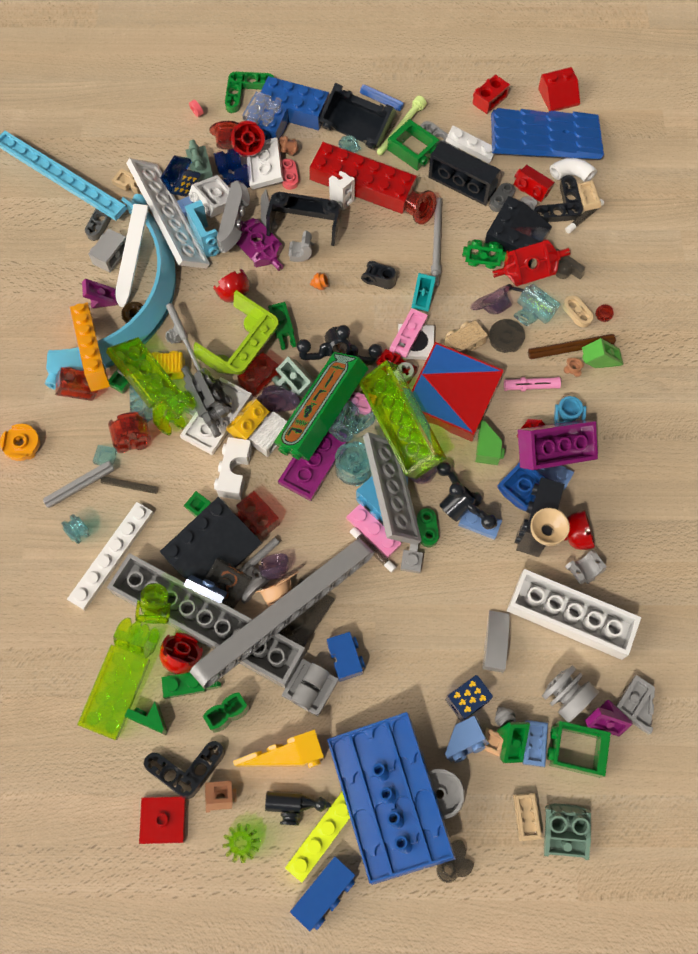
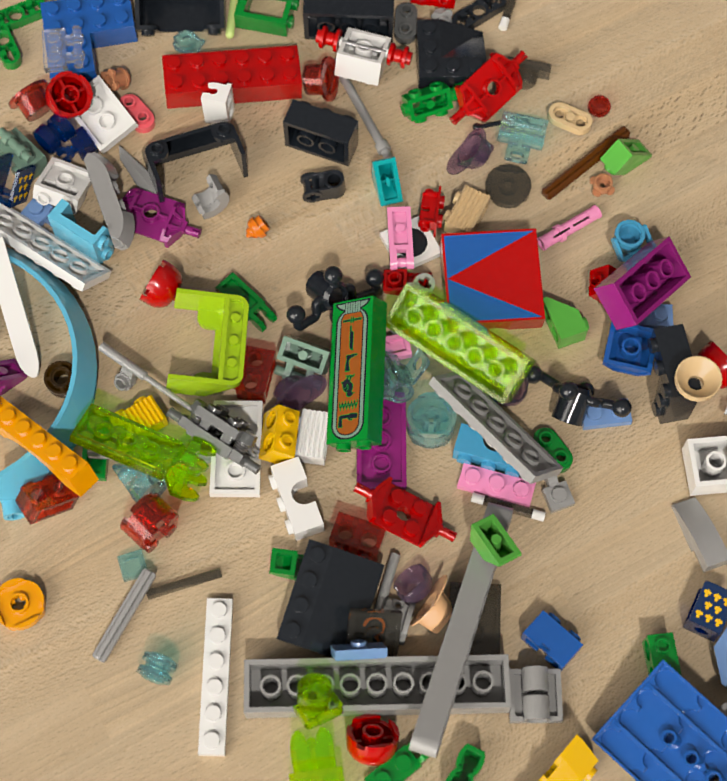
camera: 30 degrees left, 0 degrees up
(290, 500) = (423, 518): none -> red plate
(338, 563) = (493, 541): none -> bright green slope
(398, 239) = (321, 132): none -> black brick
(416, 708) = (659, 648): none -> green brick
(446, 321) = (431, 219): none -> red hinge
(456, 201) = (362, 53): none -> white brick

